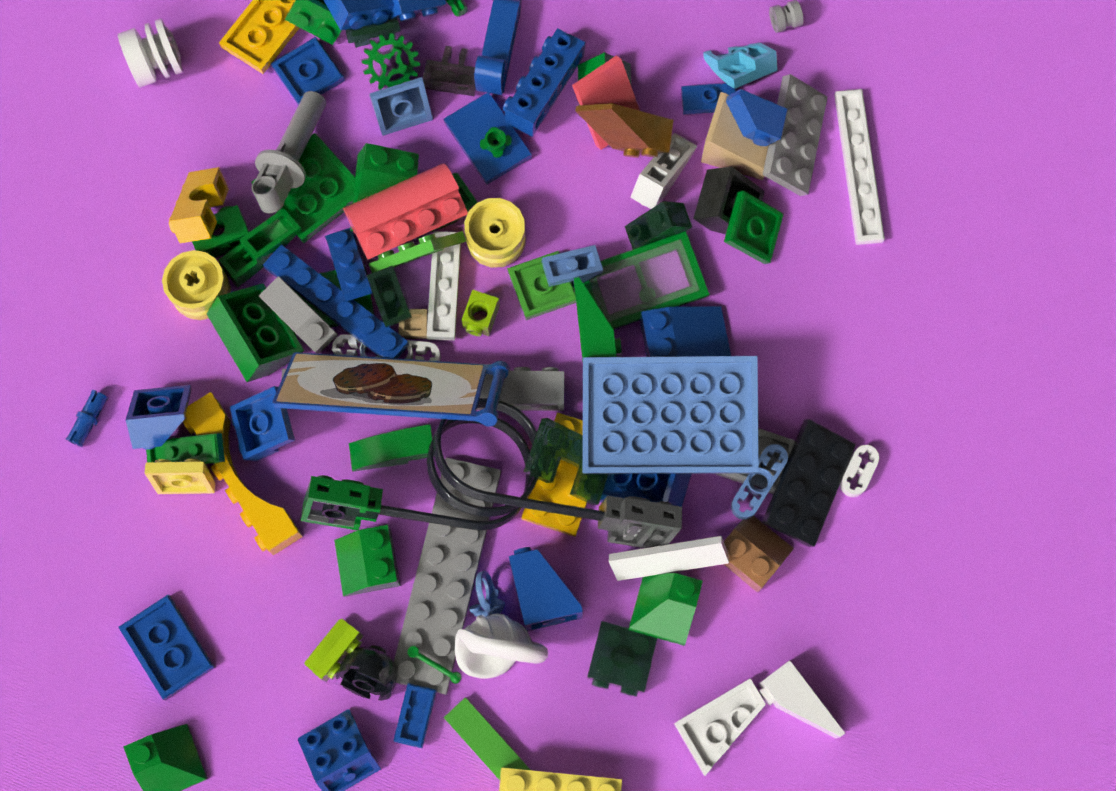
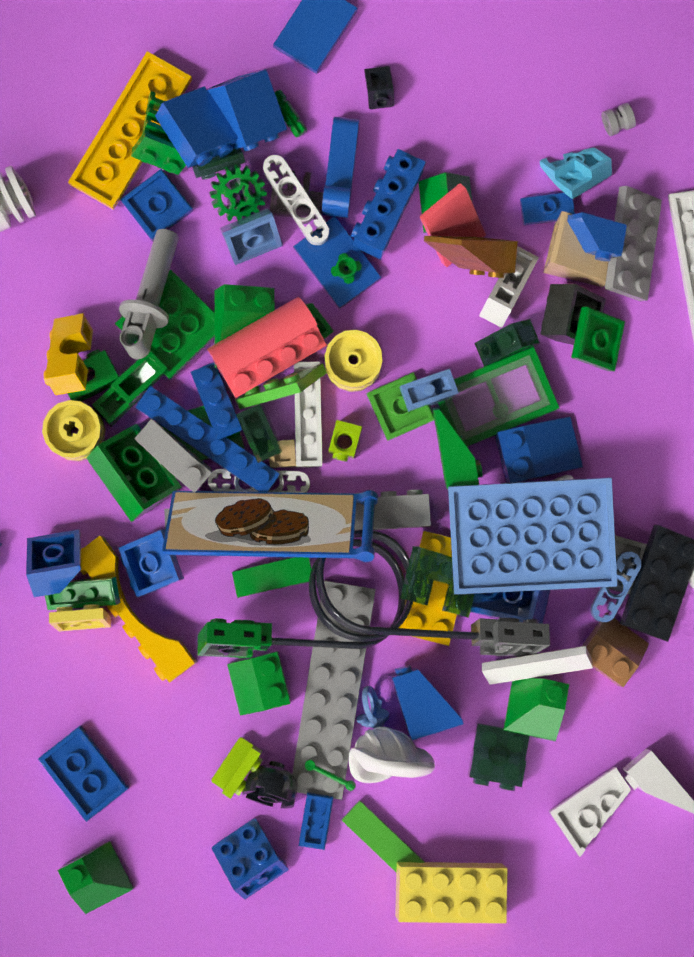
camera: 10 degrees left, 10 degrees up
(450, 71) = (295, 200): none -> white beam

